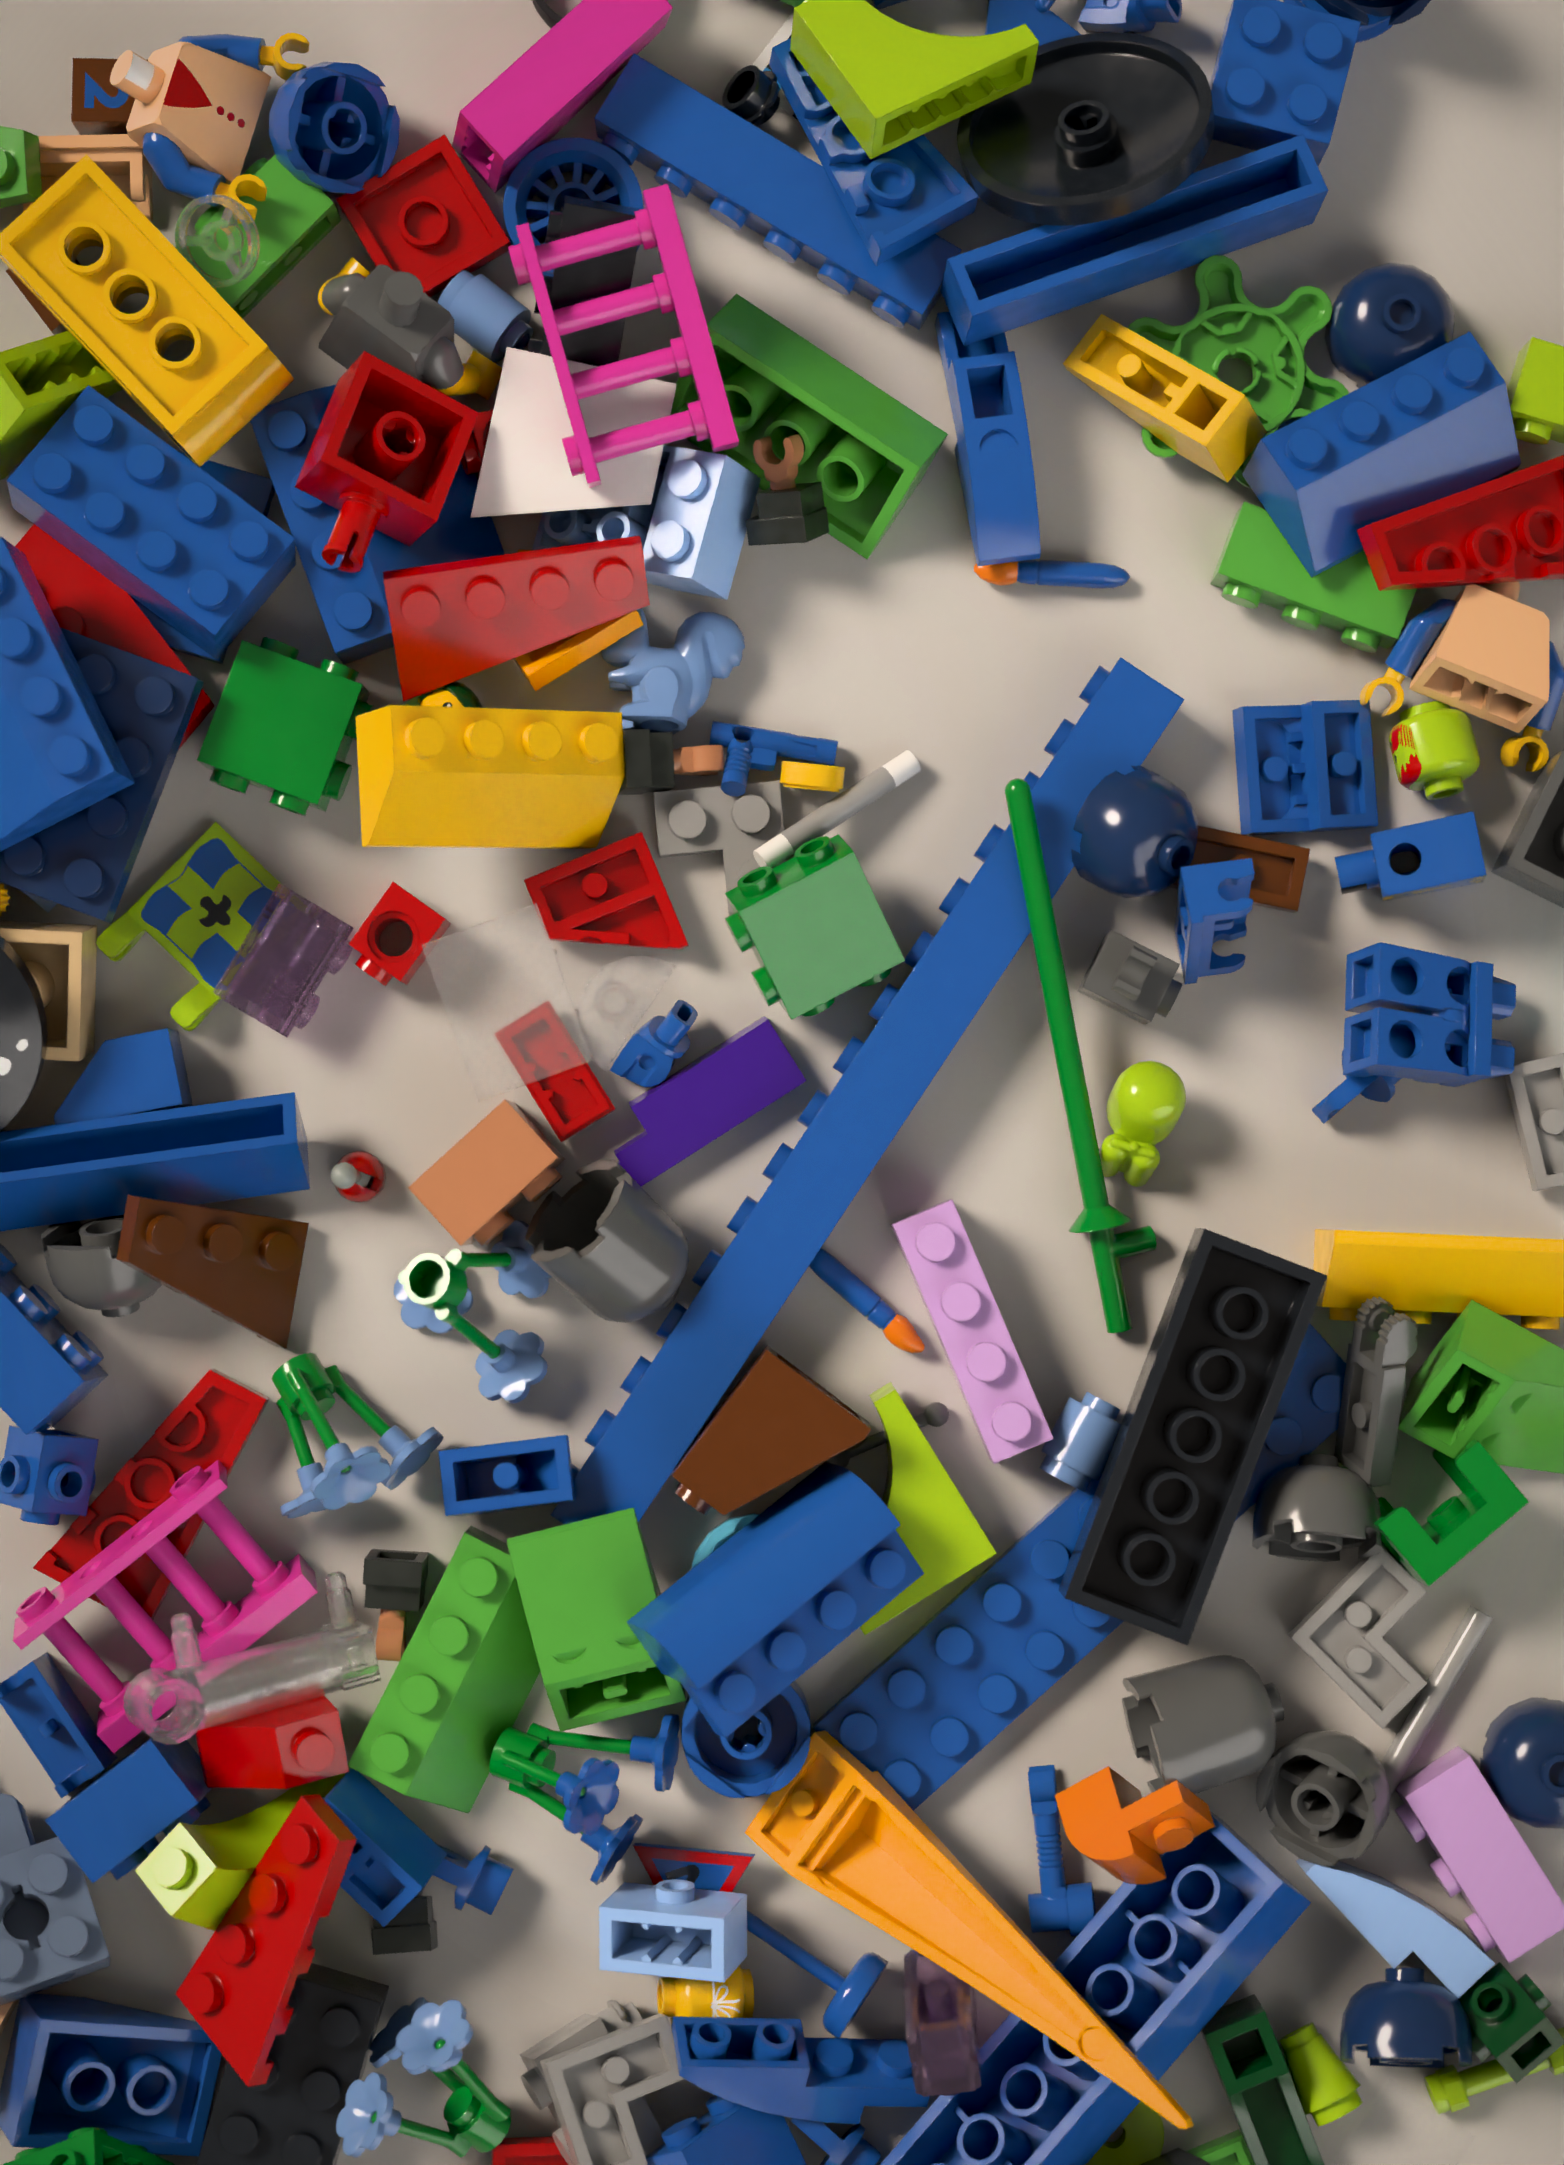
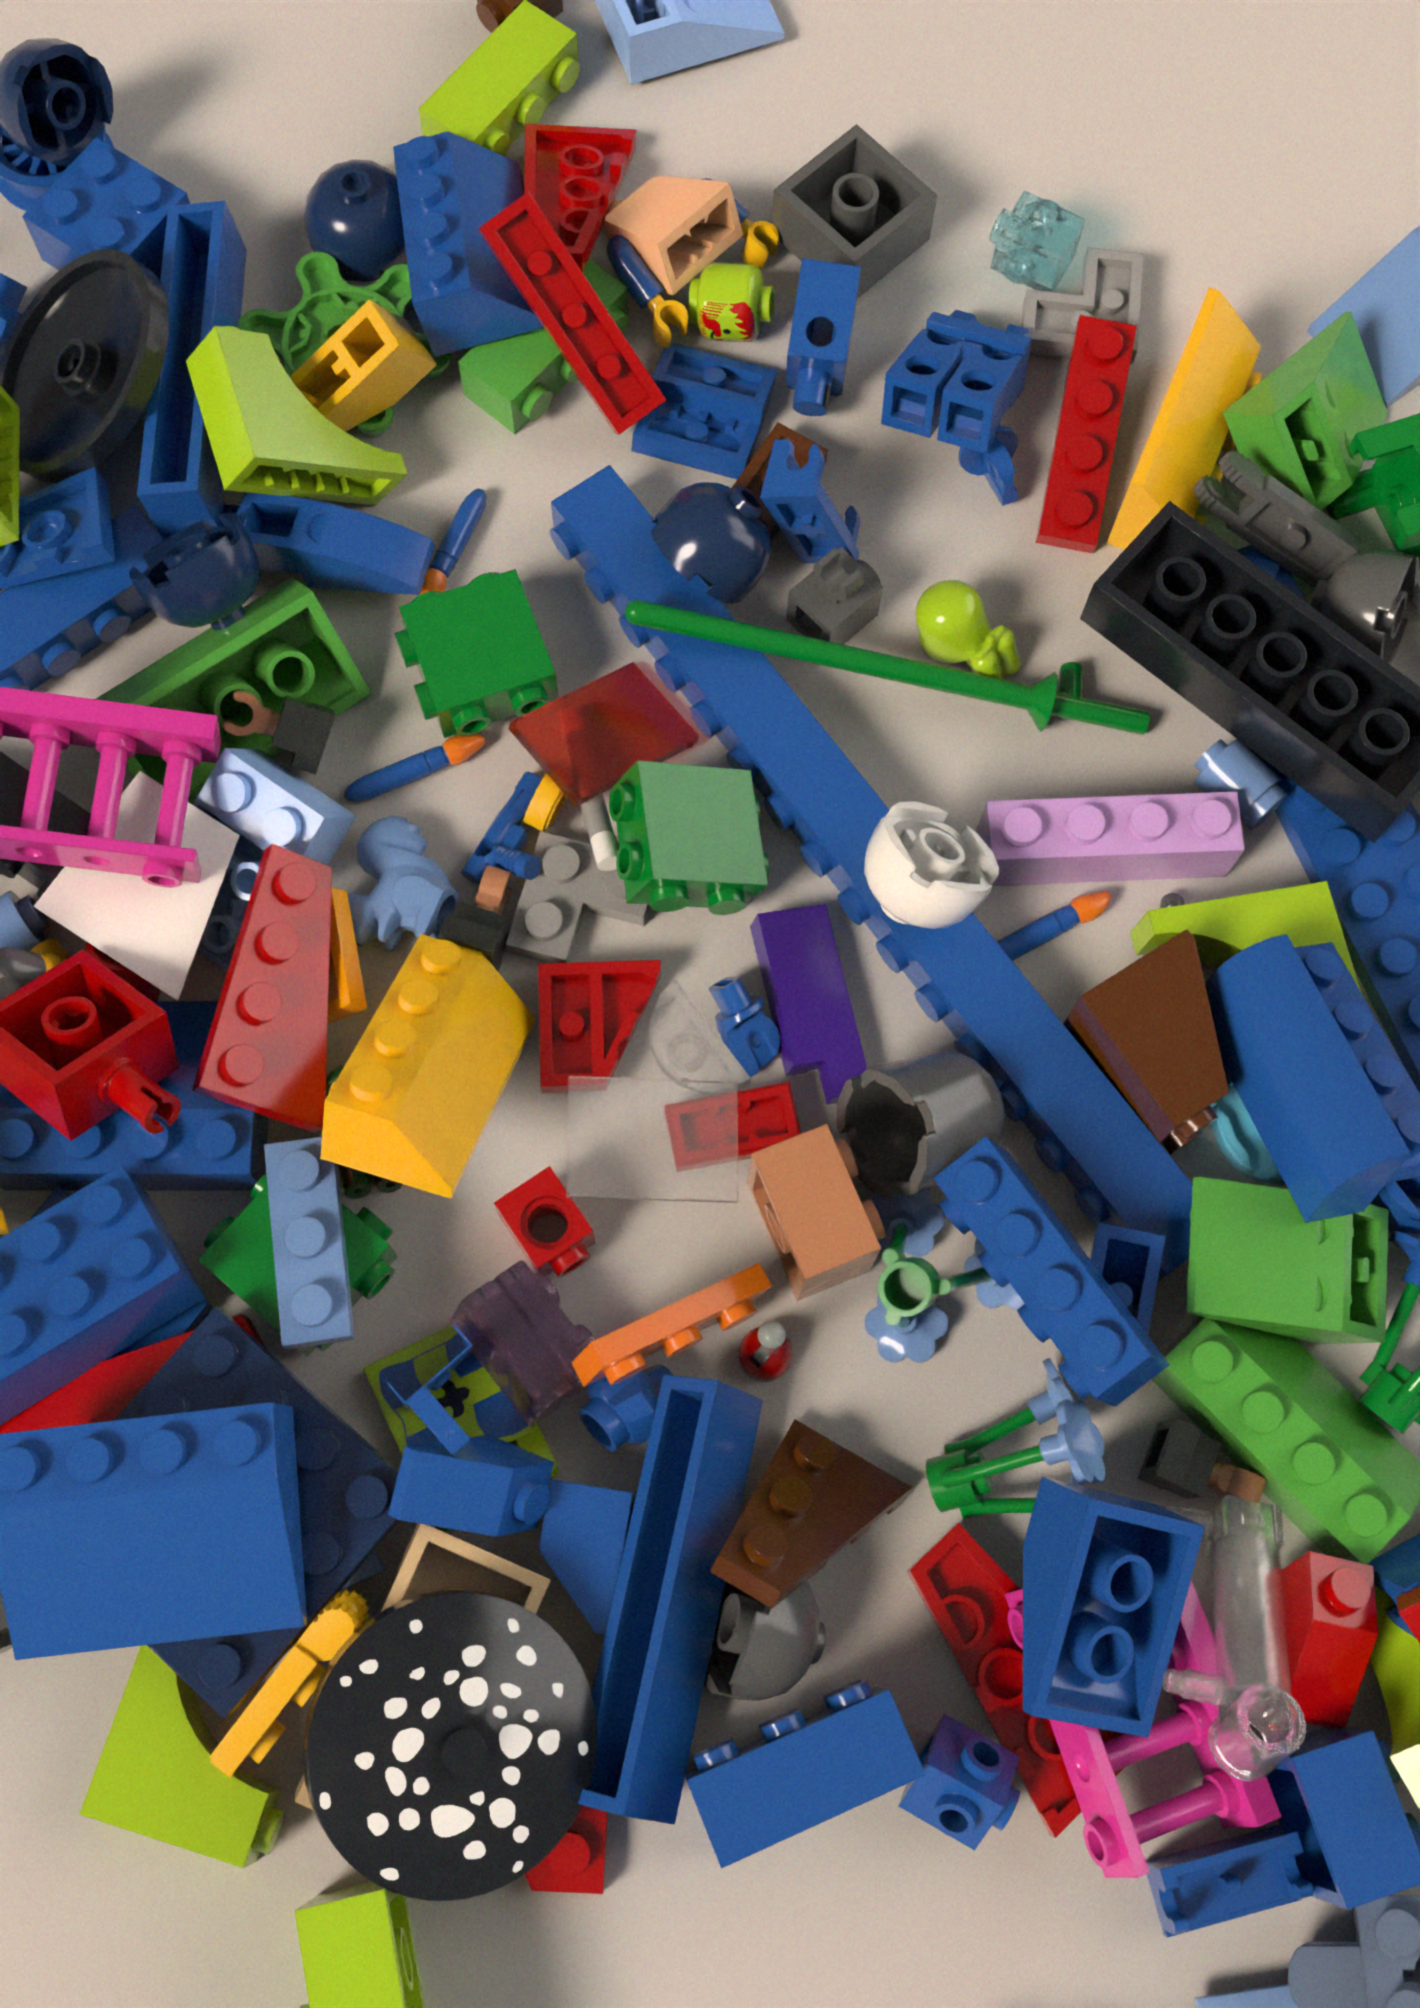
camera: 70 degrees left, 15 degrees down
(132, 964) = (478, 1489): none -> blue slope
(179, 885) = (431, 1411): none -> blue piece
(224, 1540) = (1101, 1605): none -> blue slope
(264, 1067) = (623, 1410): none -> blue rock
(286, 733) = (308, 1245): none -> medium blue plate
(338, 1086) = (672, 1327): none -> orange plate
(497, 1403) = (1051, 1273): none -> blue brick
(832, 662) = (453, 752): none -> blue piece
(847, 1166) = (927, 869): none -> white cylinder
(900, 803) = (601, 731): none -> clear red piece
(901, 348) = (200, 574): none -> dark blue cylinder
(933, 647) = (476, 654): none -> green brick
(1071, 351) = (271, 435): none -> lime arch
(1324, 599) = (571, 313): none -> red plate
(1420, 1168) = (1086, 434): none -> red plate

